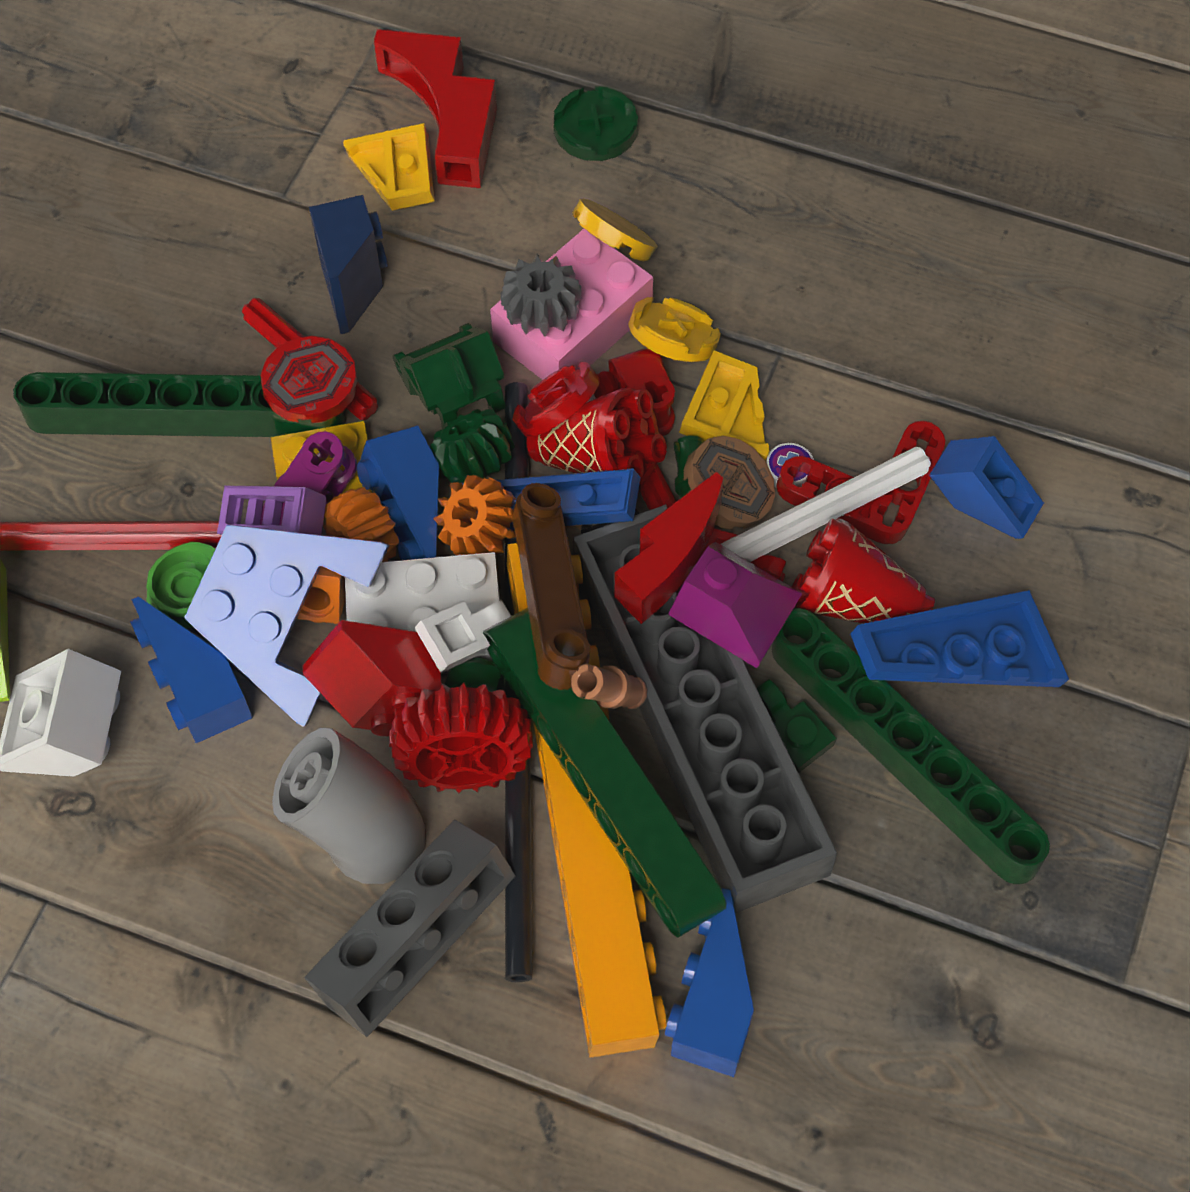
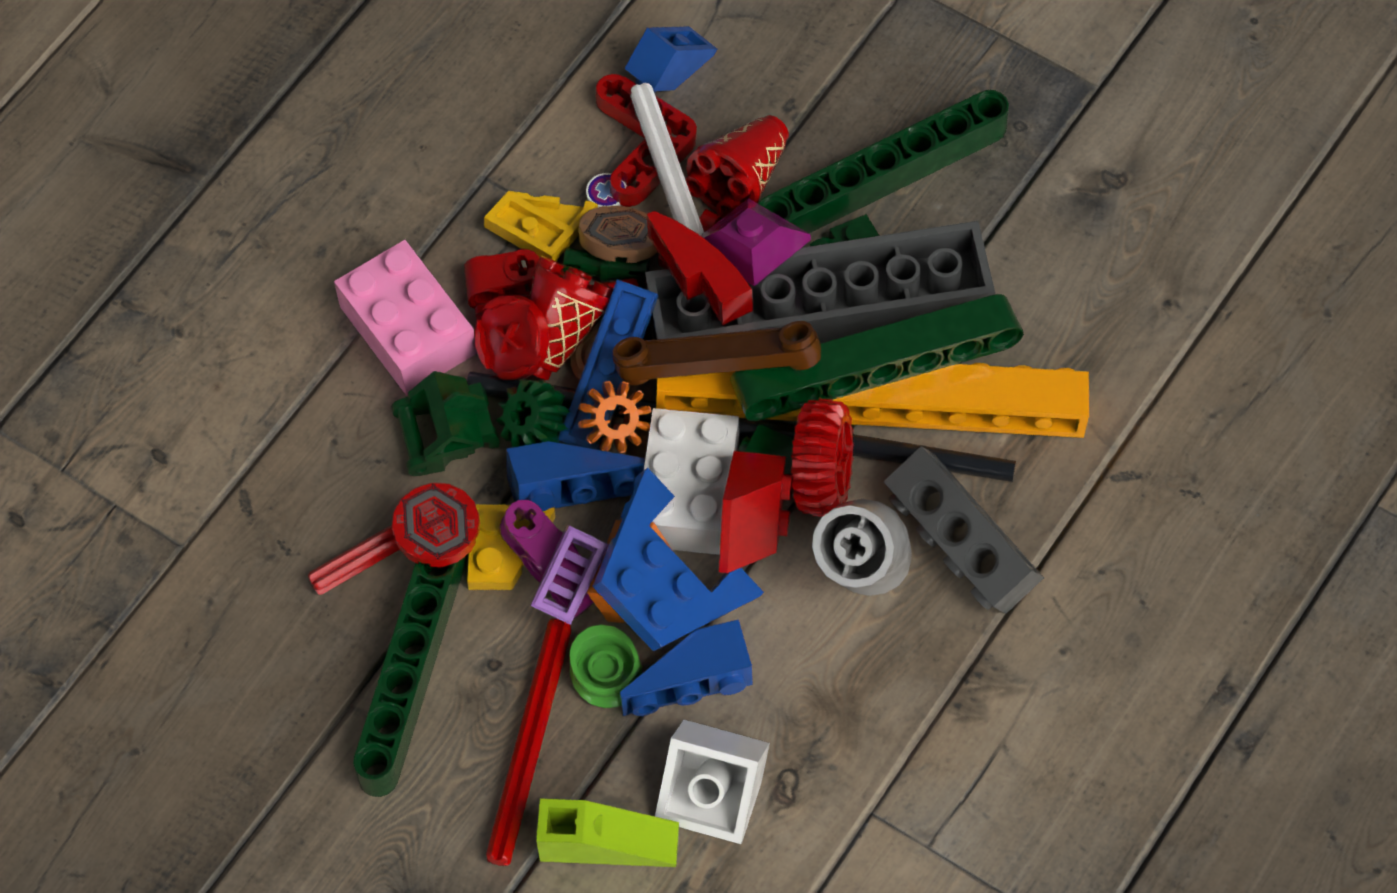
camera: 75 degrees left, 0 degrees up
(349, 256) = (305, 482): dark blue slope -> none
(361, 517) = (594, 508): orange gear -> none
(396, 164) = (187, 437): yellow wing -> none
(458, 634) = (742, 431): white plate -> none
(460, 104) = (138, 371): red arch -> none
(541, 295) = (417, 316): dark grey gear -> none
(595, 123) = (186, 267): dark green tile -> none
(609, 686) = (825, 326): nougat pin -> none
(614, 229) = (335, 264): yellow tile -> none
(674, 329) = (453, 243): yellow tile -> none
(719, 1003) = (1067, 337): blue slope -> none
(965, 643) = (812, 104): blue wing -> none

